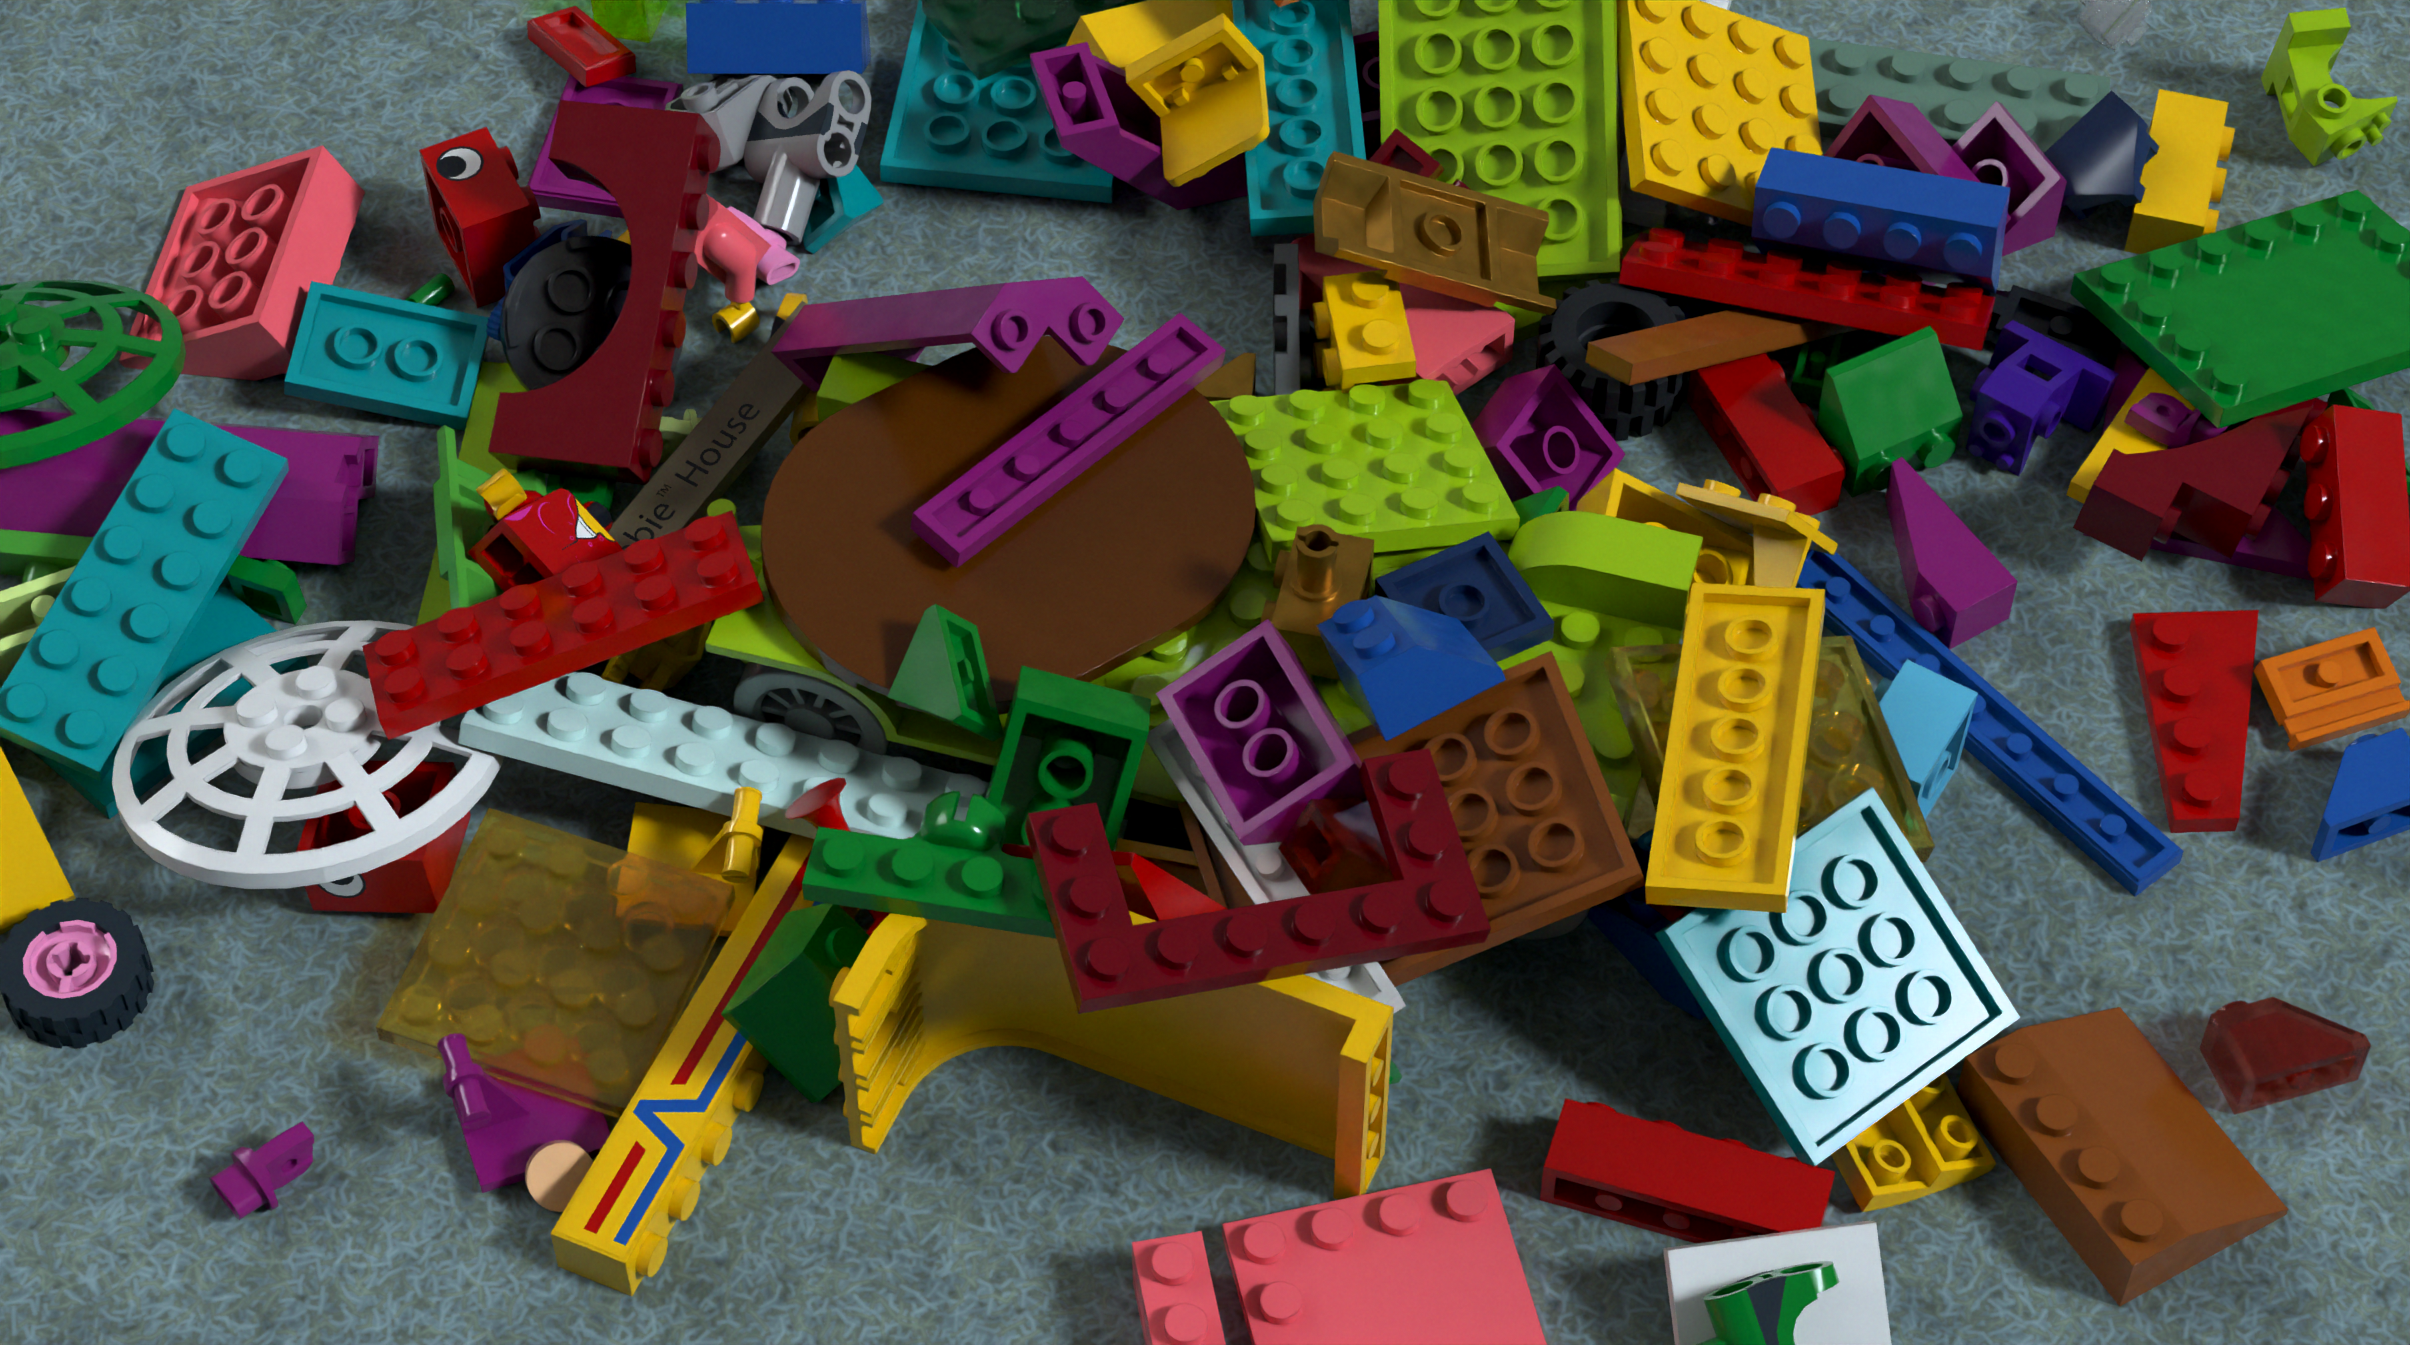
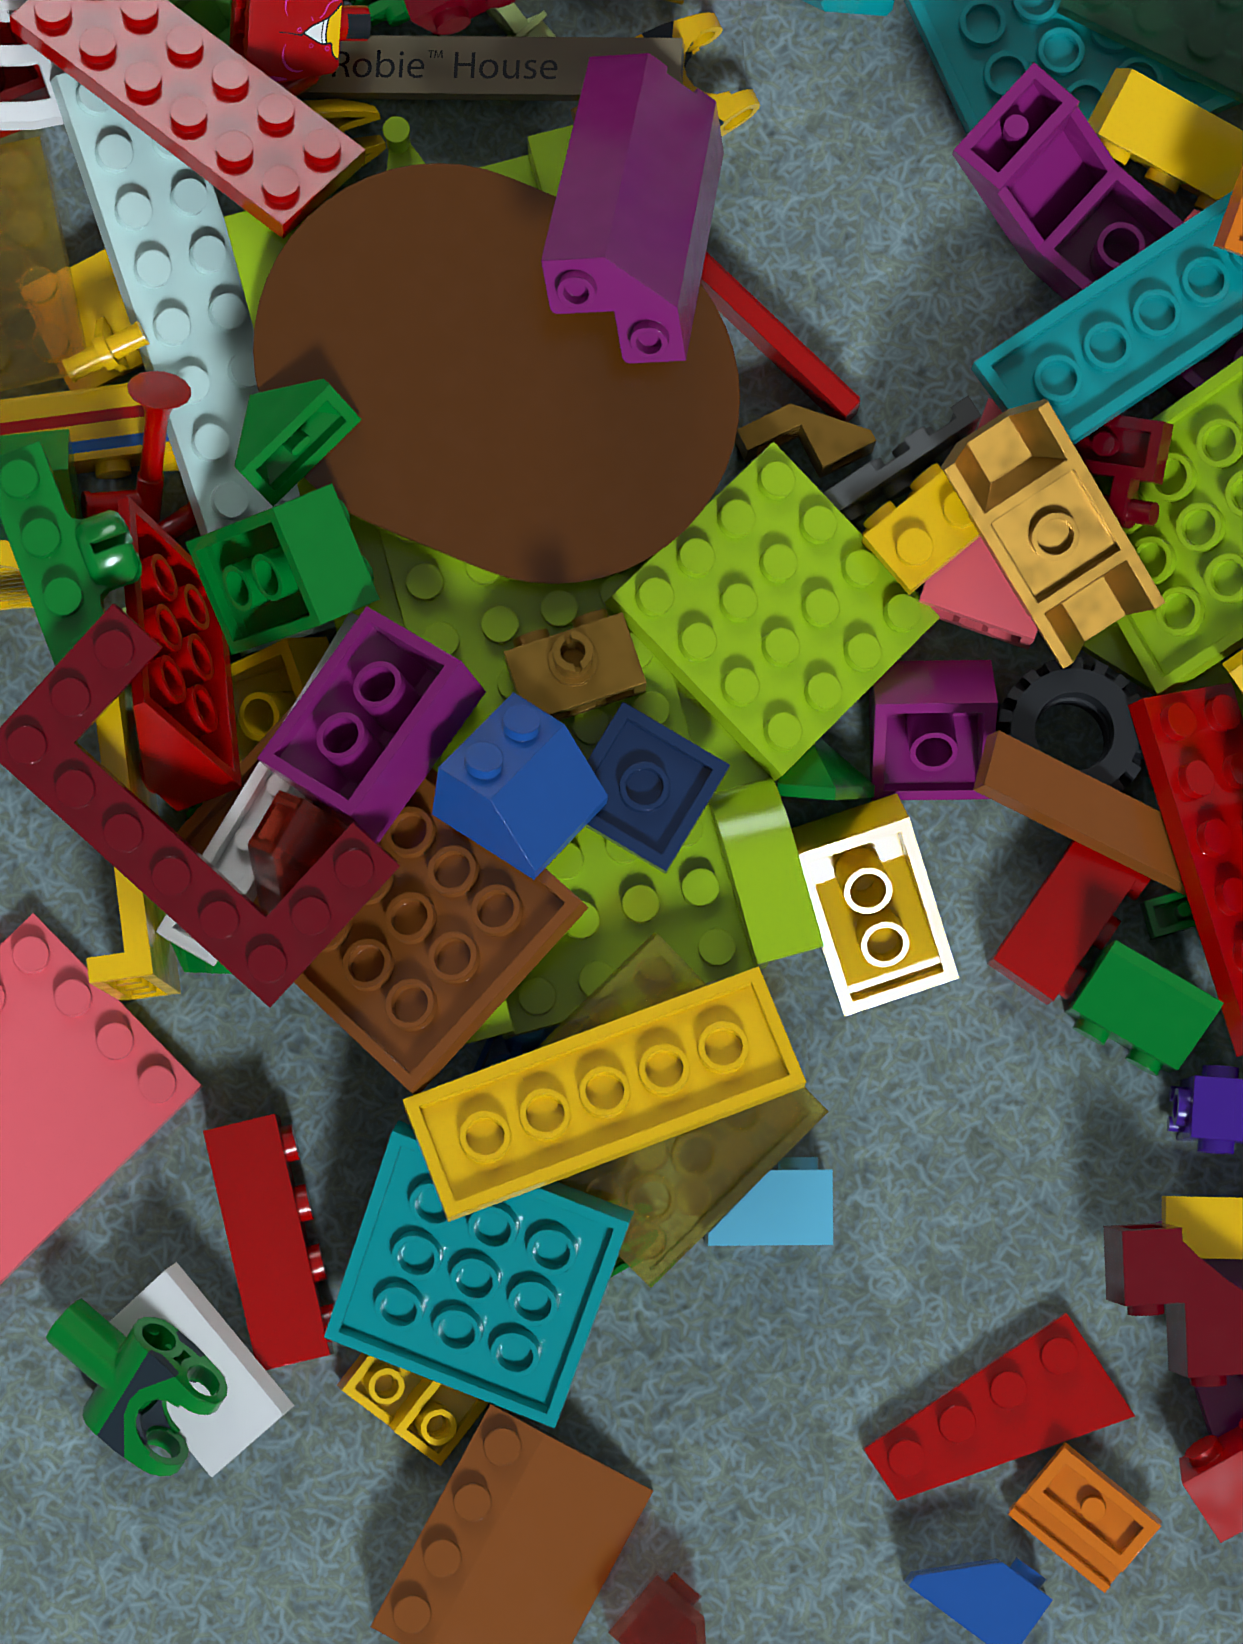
camera: 55 degrees right, 30 degrees up
(1067, 440) = (591, 375): magenta plate -> none
(1207, 97) = (1086, 248): yellow bracket -> none
(1778, 531) = (943, 976): yellow plate -> none
(1947, 571) = (1011, 1137): magenta slope -> none
(1998, 731) = (884, 1229): blue tile -> none

